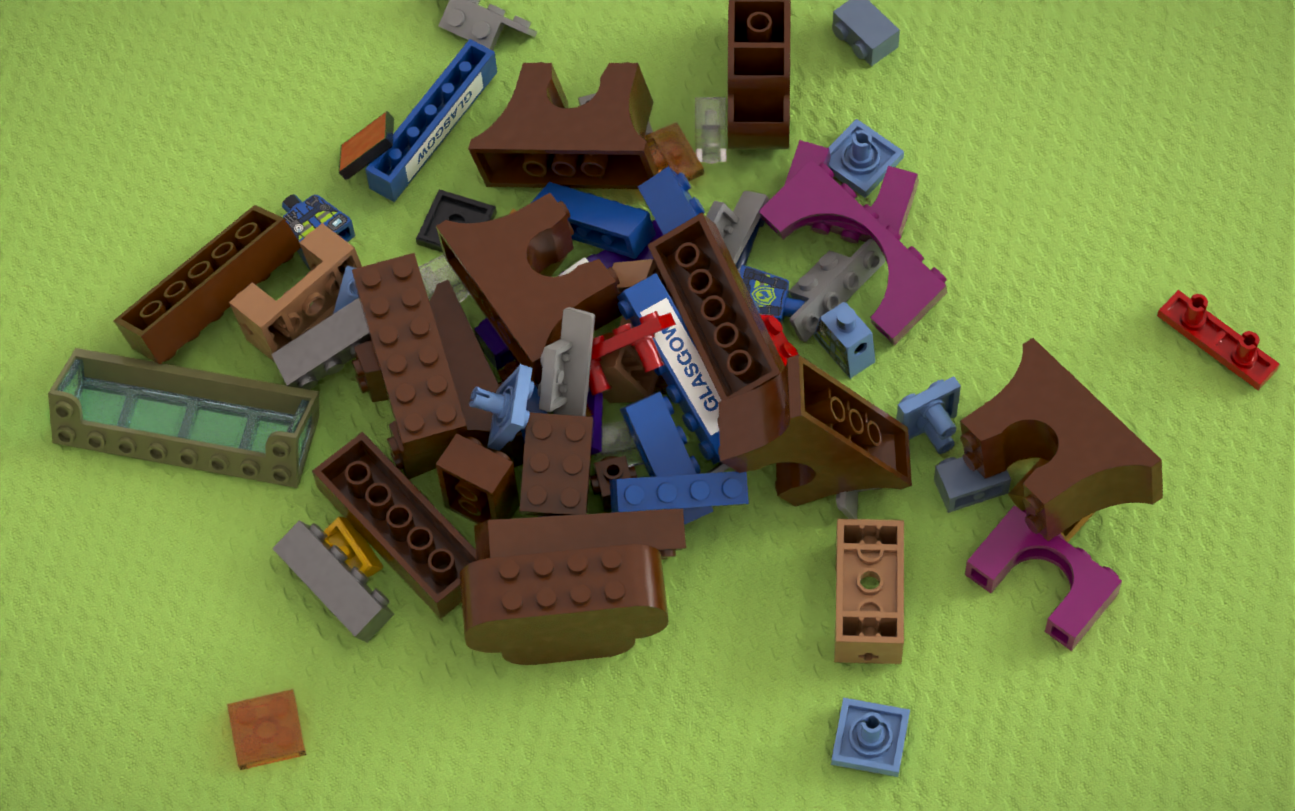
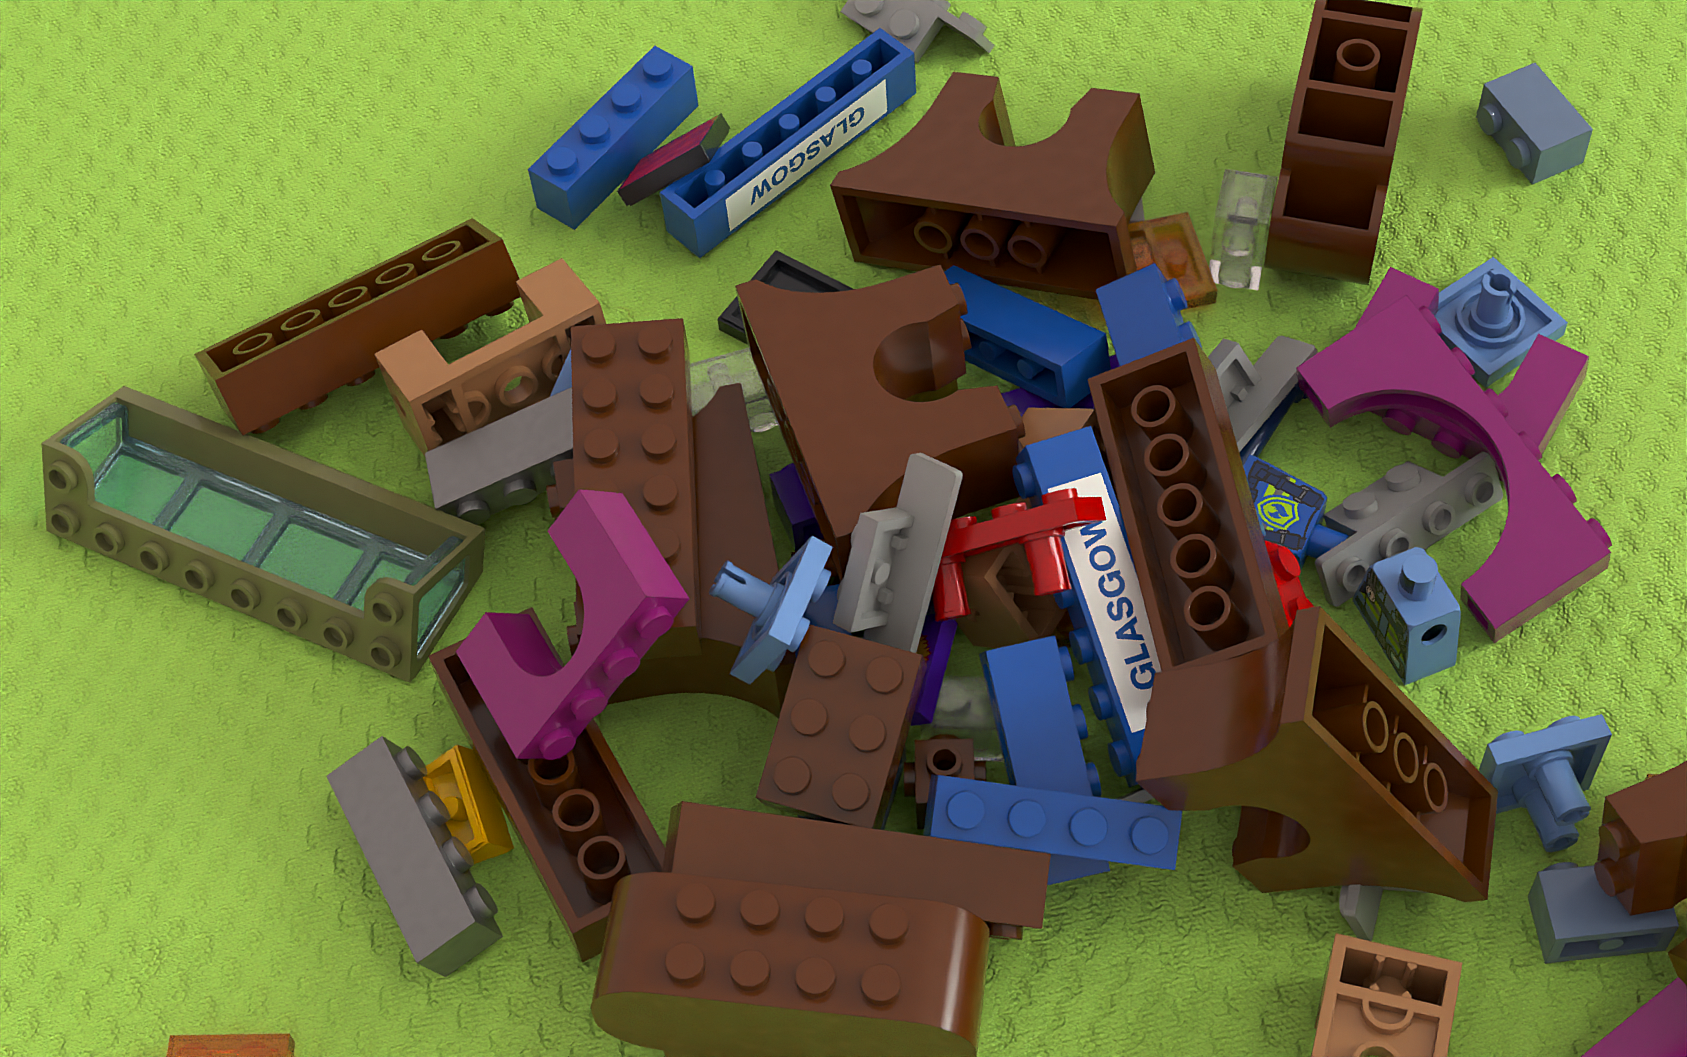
camera: 15 degrees right, 5 degrees down
(308, 215) = (571, 242): torso -> none
(322, 135) = (613, 137): none -> blue brick
(430, 420) = (627, 606): none -> magenta arch
(477, 481) = (699, 728): reddish brown brick -> none

